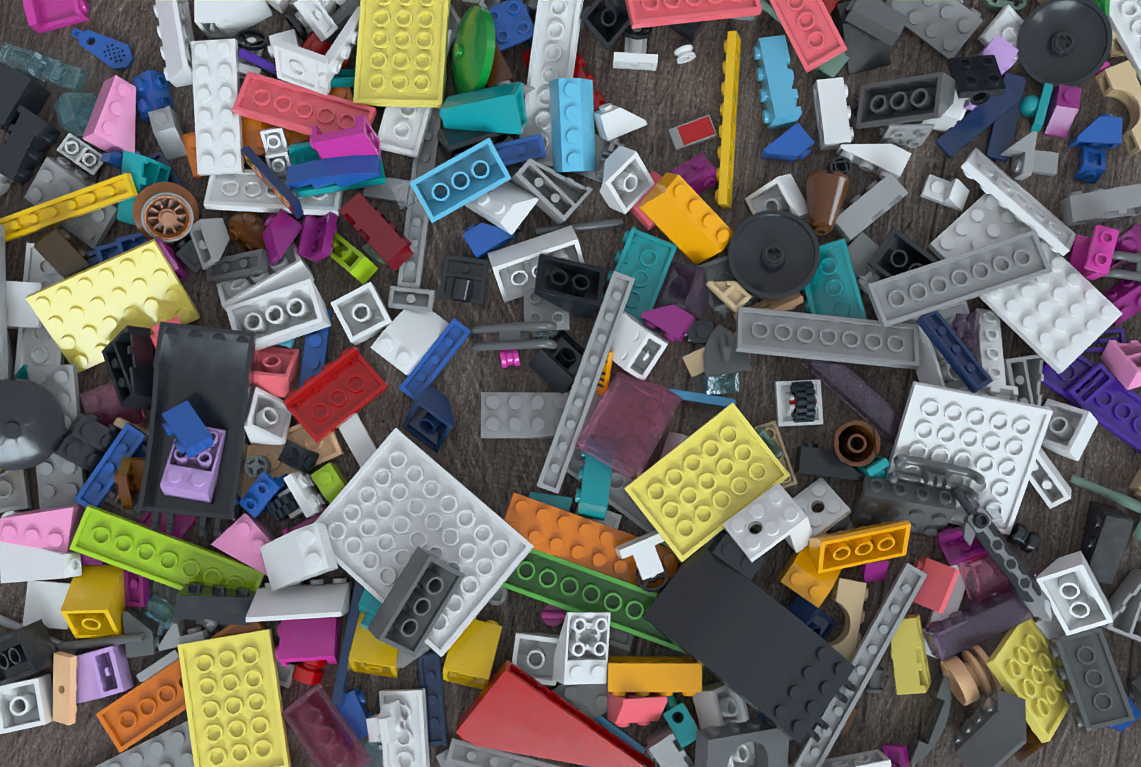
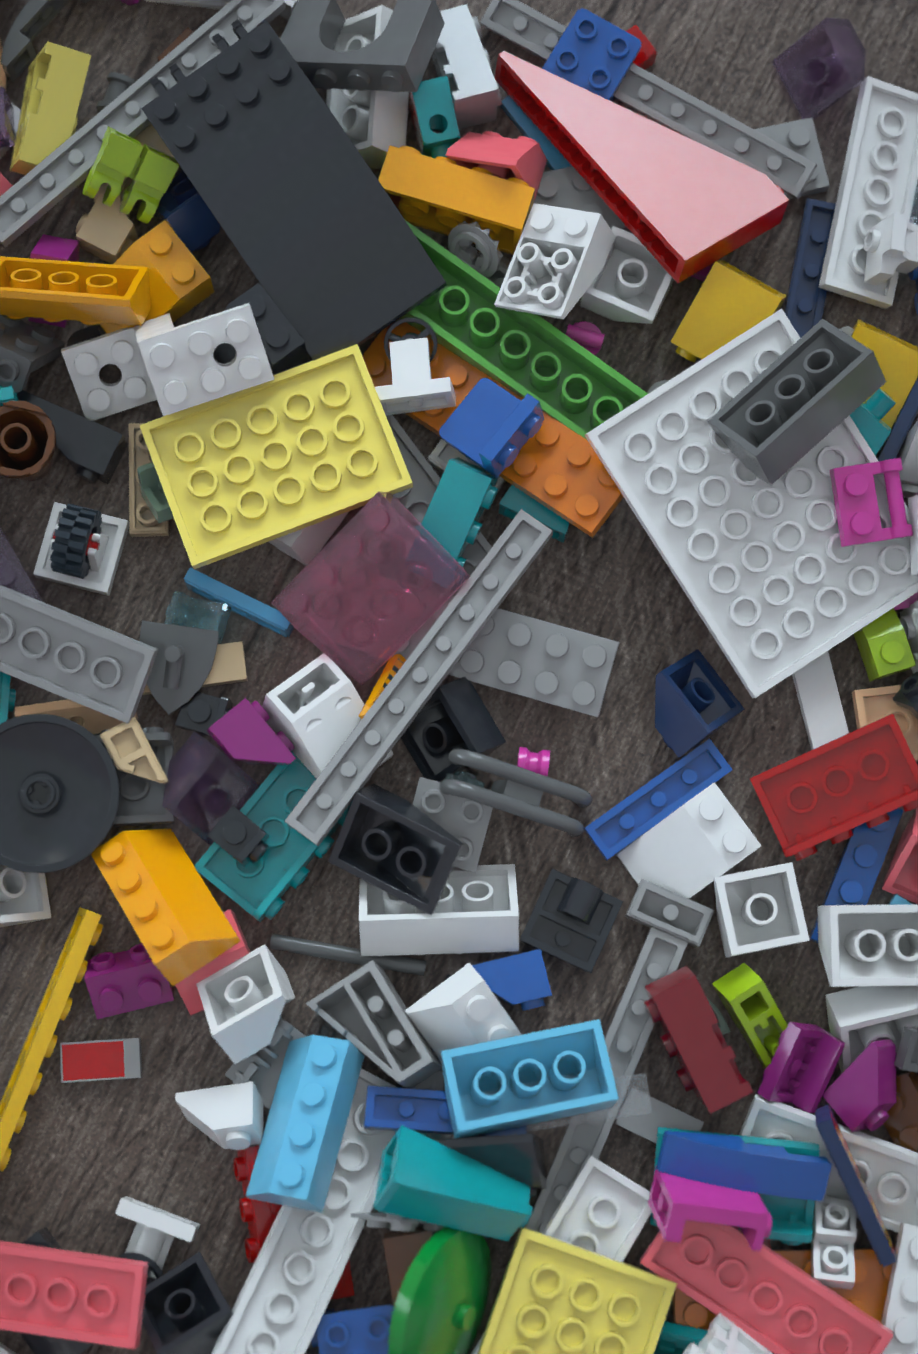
camera: 165 degrees left, 5 degrees down
(365, 553) = (858, 505): none -> dark pink plate
(589, 538) = (492, 426): none -> blue bracket
(632, 646) = (460, 245): none -> light grey gear
(656, 267) = (240, 837): none -> black bracket
(684, 54) = (66, 1205): white bush -> none
(855, 634) = (126, 157): none -> lime legs

